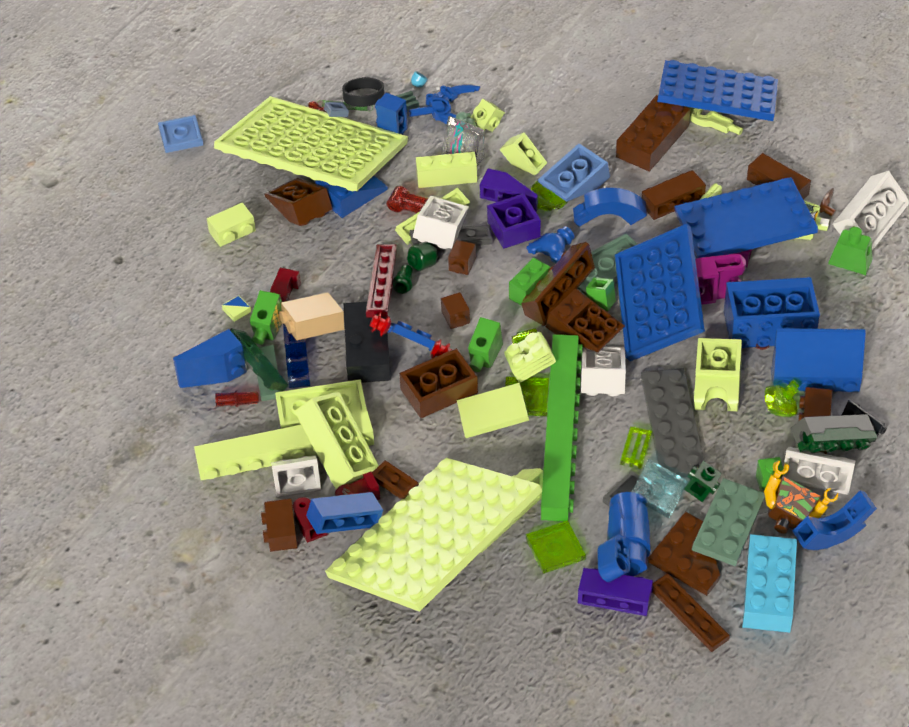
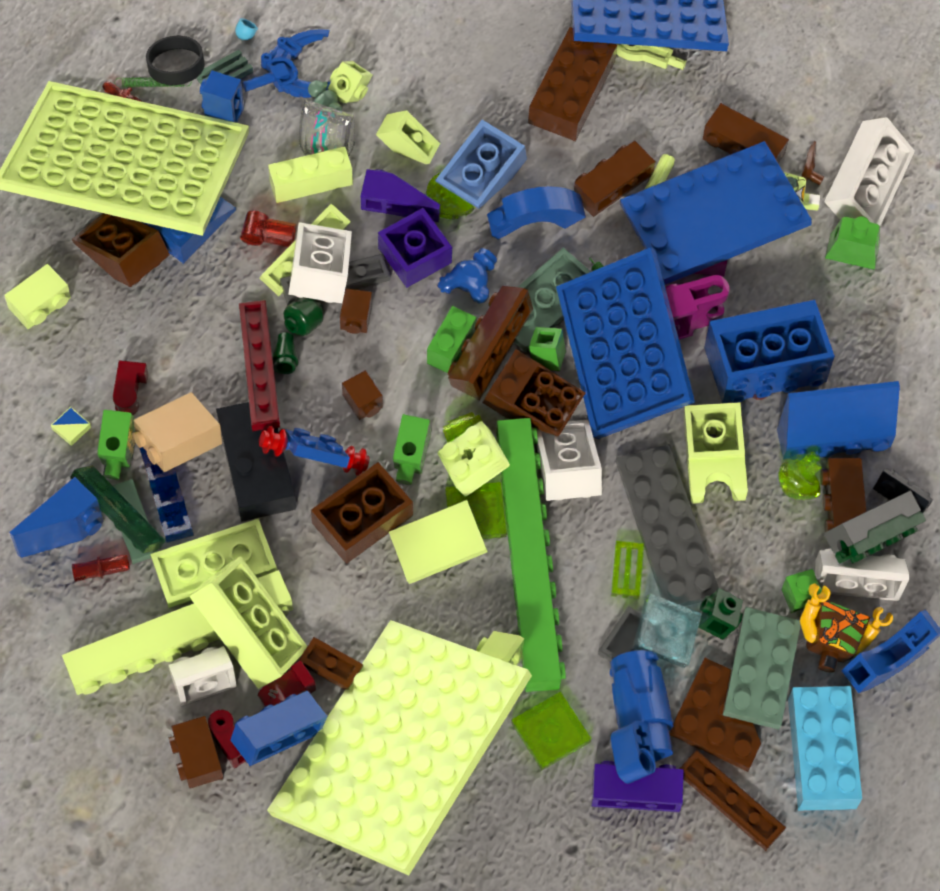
camera: 15 degrees left, 15 degrees up
(336, 109) = (144, 93): sand blue tile -> none

